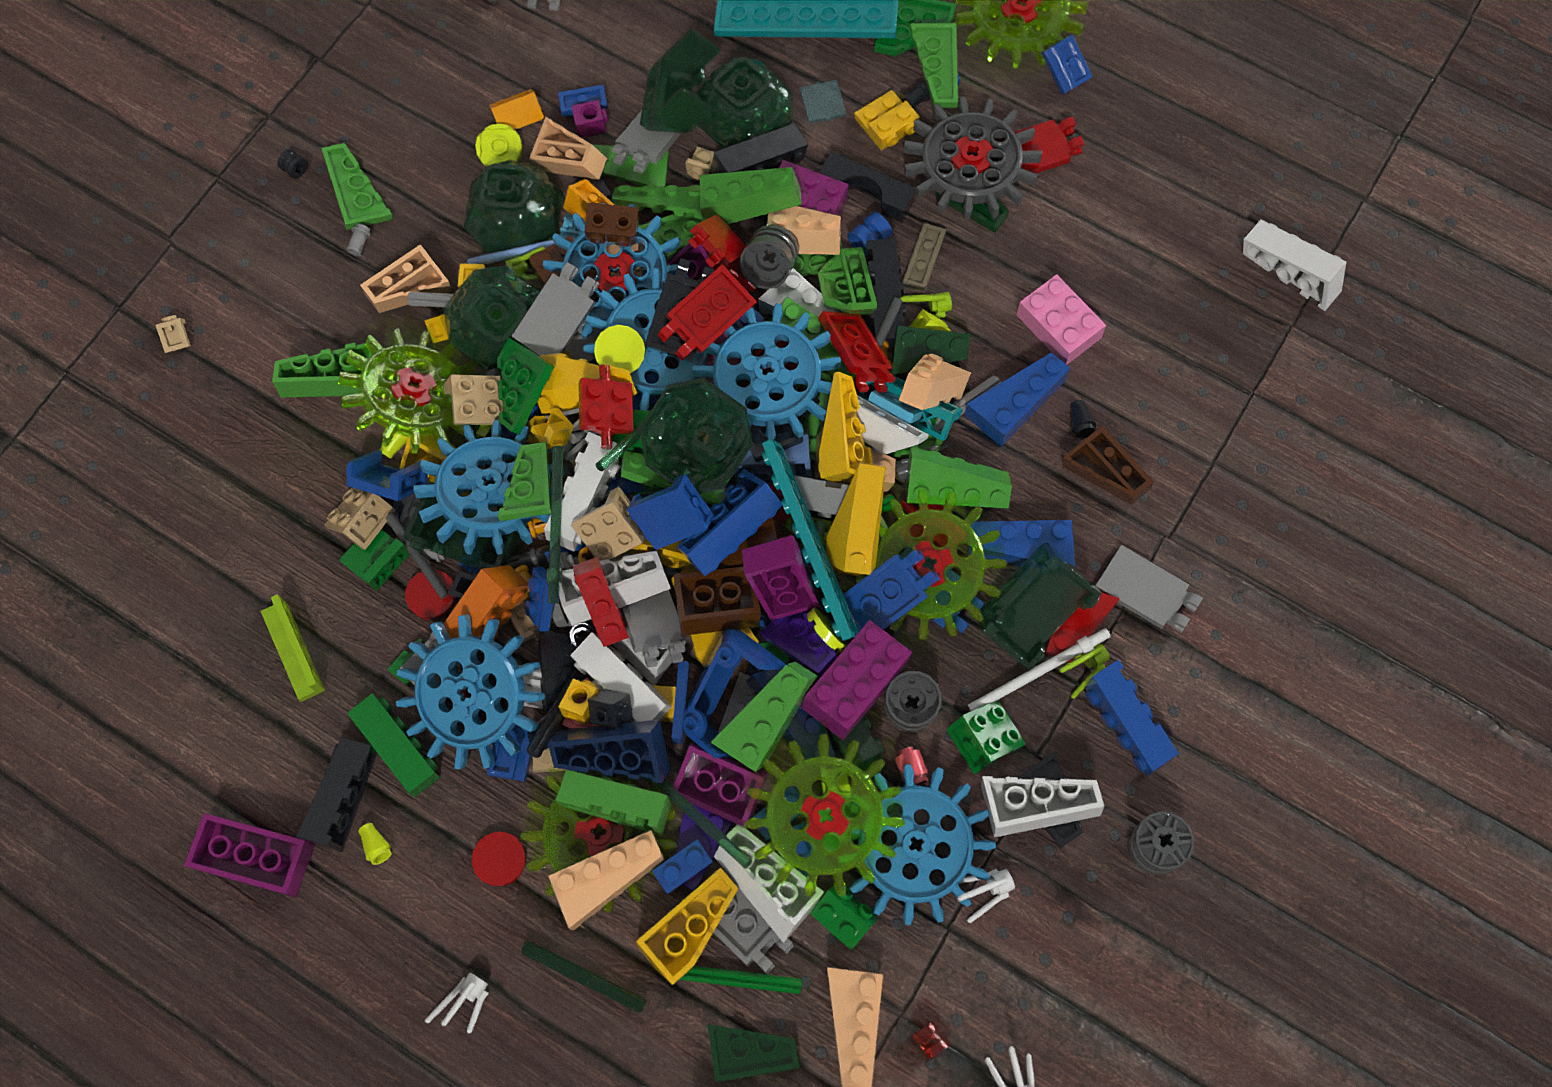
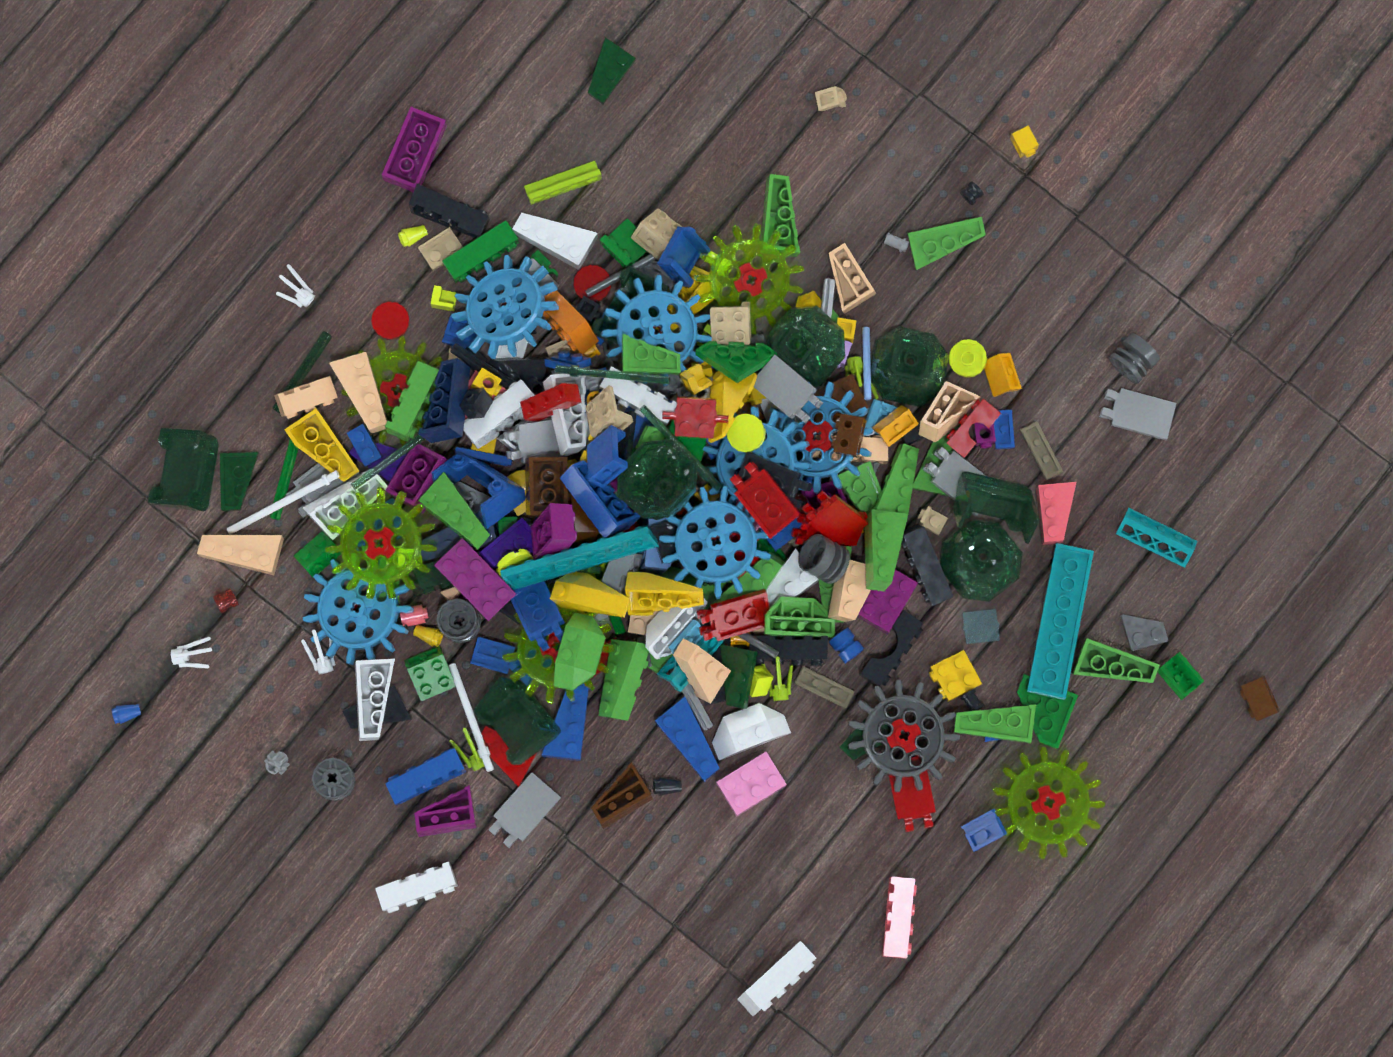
camera: 90 degrees right, 10 degrees up
(134, 608) = (609, 71): none -> dark green wing
(227, 114) = (1024, 142): none -> yellow brick
(370, 645) = (557, 239): none -> white wedge
(392, 802) = (440, 248): none -> tan plate
(464, 788) = (443, 299): none -> neon yellow panel
(599, 132) = (982, 413): none -> arch
(604, 62) = (1041, 451): none -> dark tan tile
(620, 962) = (306, 397): none -> light nougat wedge
(665, 29) = (1054, 510): none -> coral wedge
(740, 913) = (325, 480): none -> white bar
(877, 720) = (451, 593): none -> light nougat slope
(935, 743) = (429, 635): none -> yellow cone
(936, 526) = (578, 652): none -> bright green wedge
(949, 656) = (489, 655): none -> blue plate
(995, 333) = (748, 729): none -> white wedge
(1151, 930) = (276, 762): none -> light grey gear
(1176, 682) = (447, 815): none -> magenta wedge
(1187, 140) = (898, 917): none -> wedge
(1281, 709) = (417, 887): none -> white wedge

